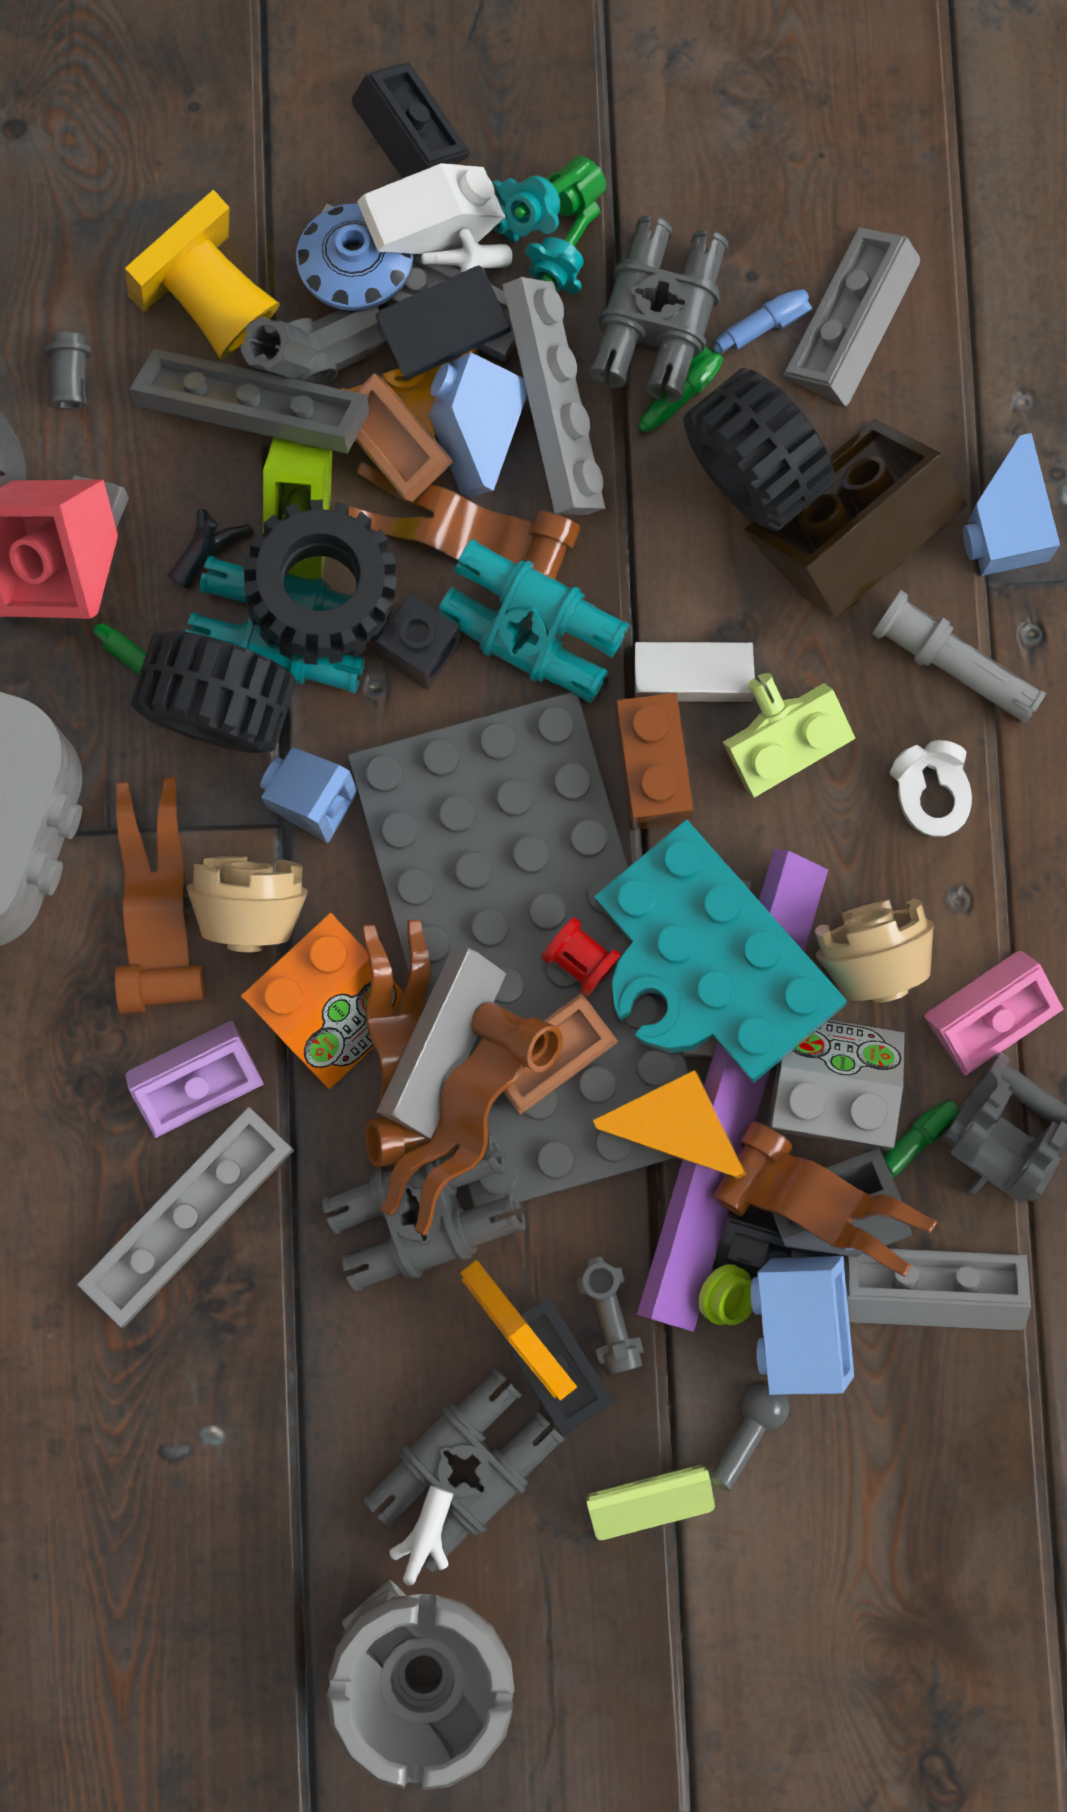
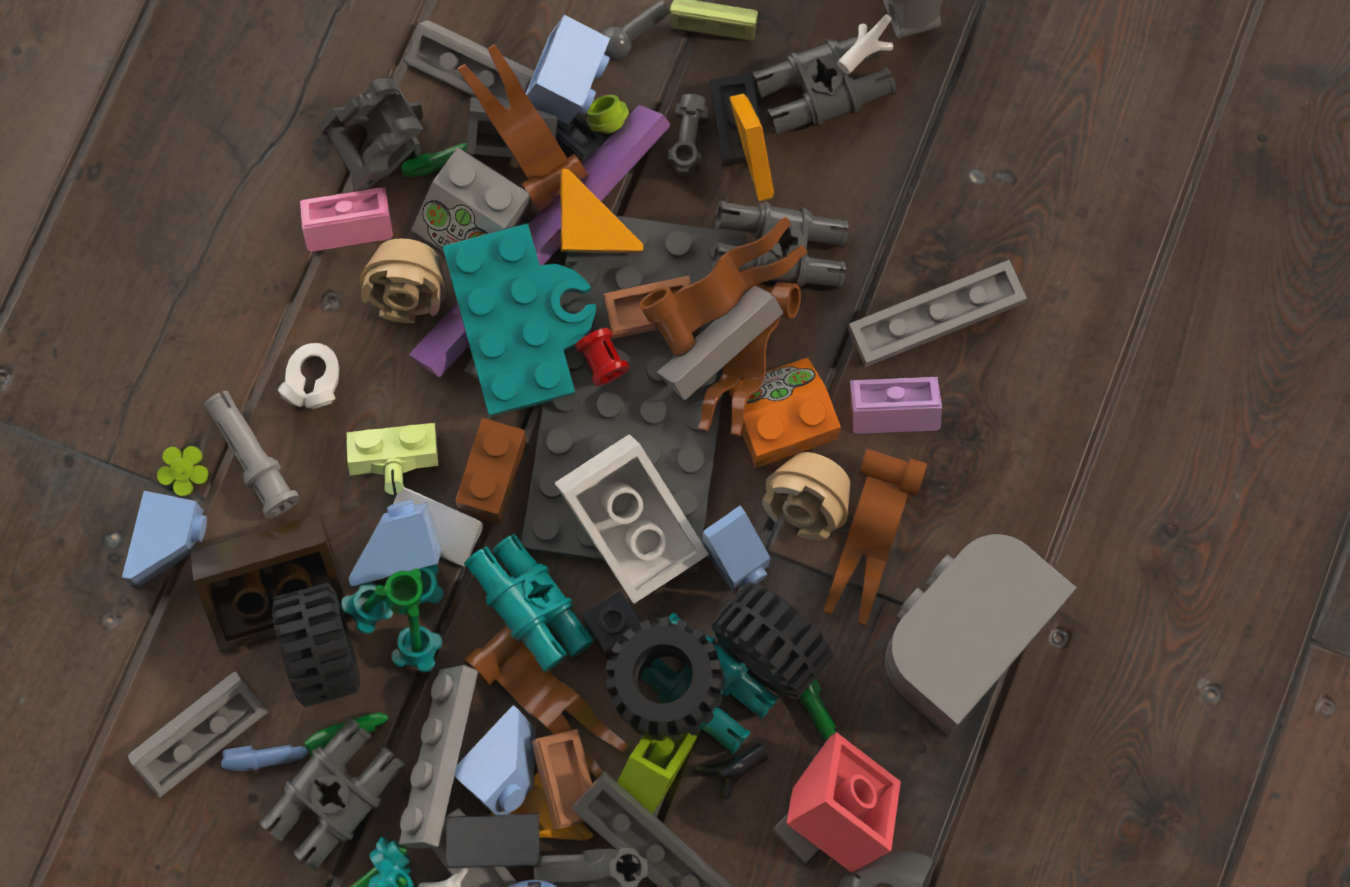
camera: 160 degrees left, 5 degrees down
(456, 770) = (632, 518): none -> white slope
(681, 543) = (402, 596): none -> teal plant
(721, 618) = (400, 542): none -> light blue slope
(1030, 609) = (182, 469): none -> lime plant

